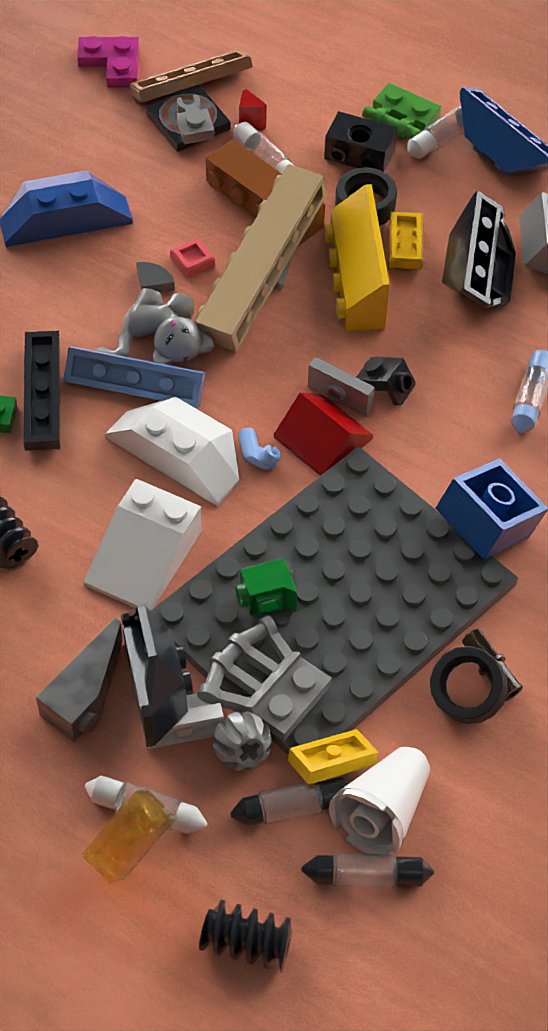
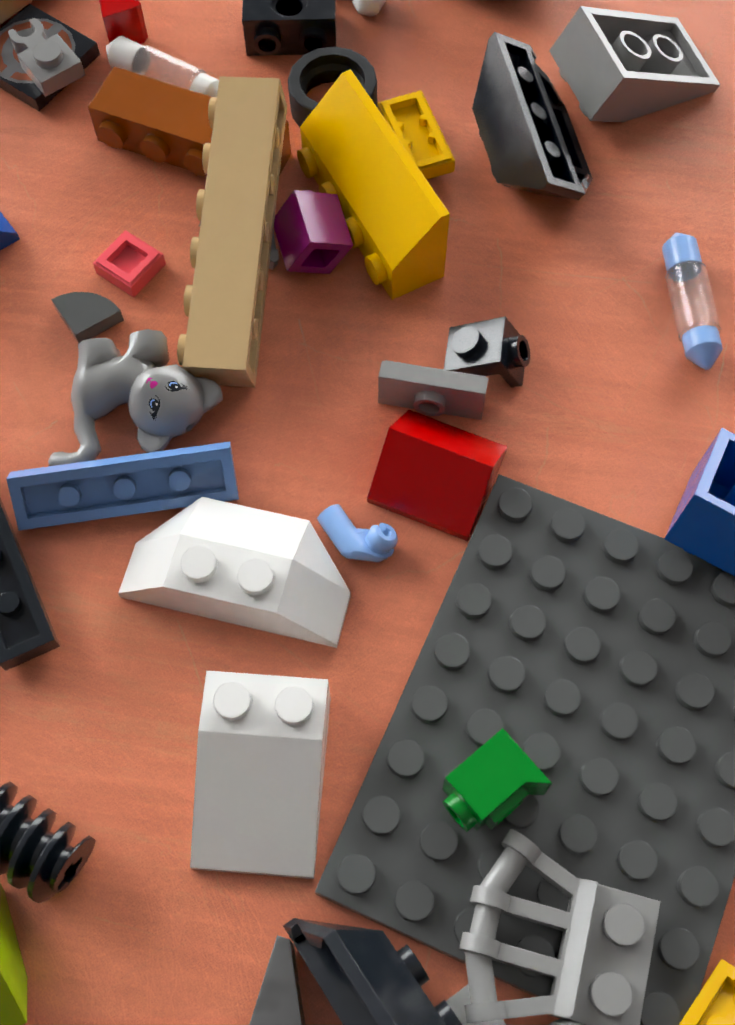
camera: 20 degrees left, 10 degrees up
(310, 274) = (312, 232): none -> magenta brick

